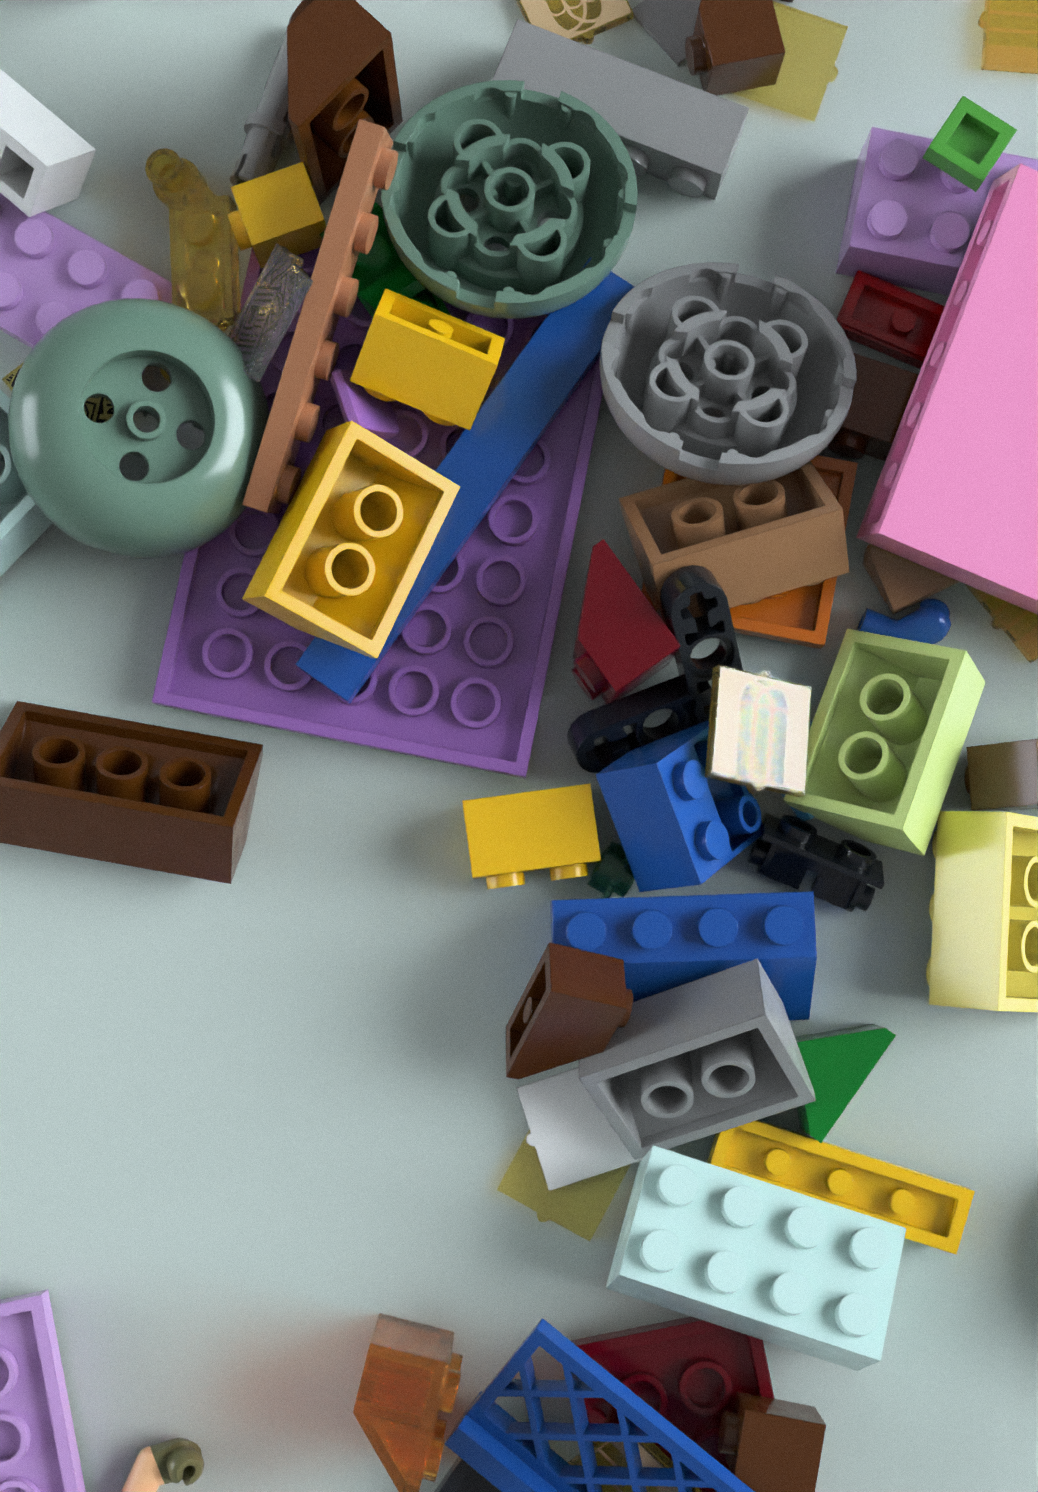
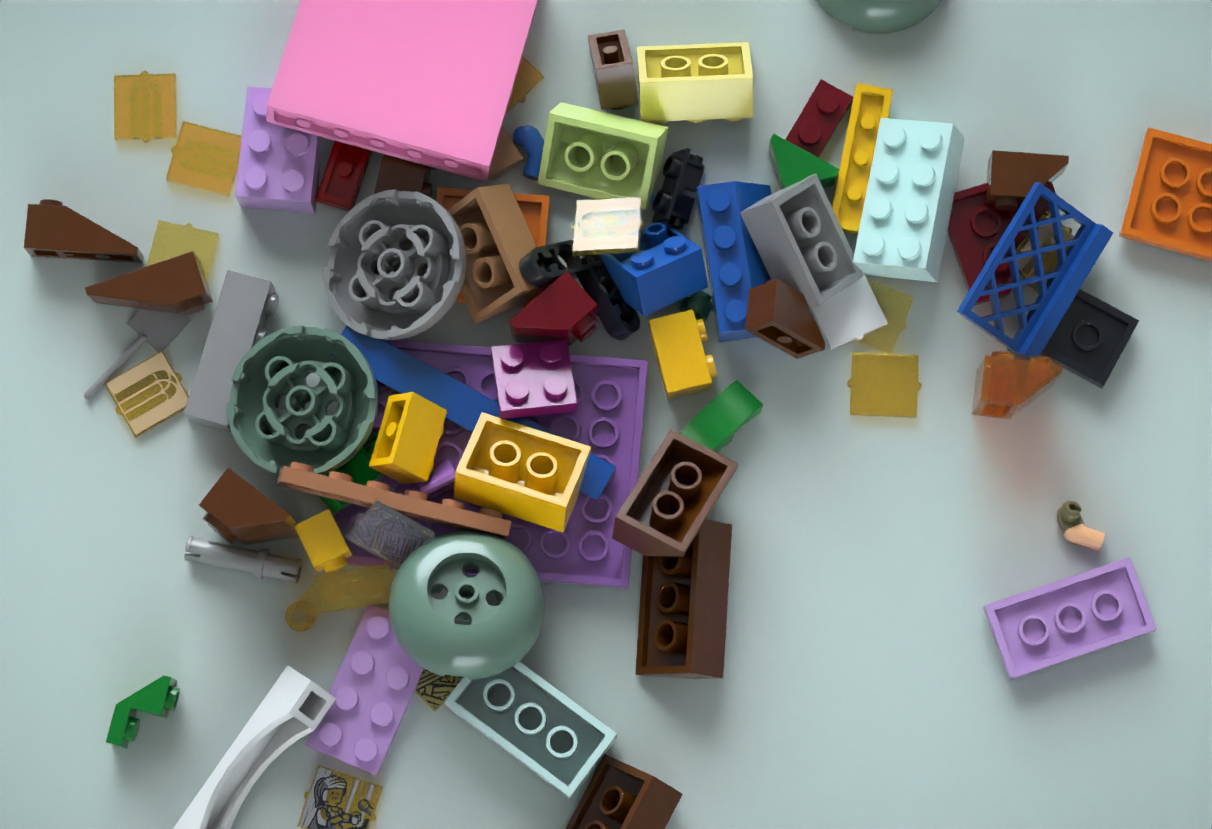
camera: 90 degrees left, 5 degrees down
(275, 789) = (672, 497): none -> reddish brown slope
(412, 887) = (723, 417): none -> green slope
(445, 1170) = (884, 385): none -> clear yellow piece
(509, 579) = (533, 379): none -> magenta plate
(916, 1118) = (819, 118): none -> dark red plate
(934, 86) = (205, 158): none -> clear yellow piece
(969, 143) = (248, 136): bright green plate -> none

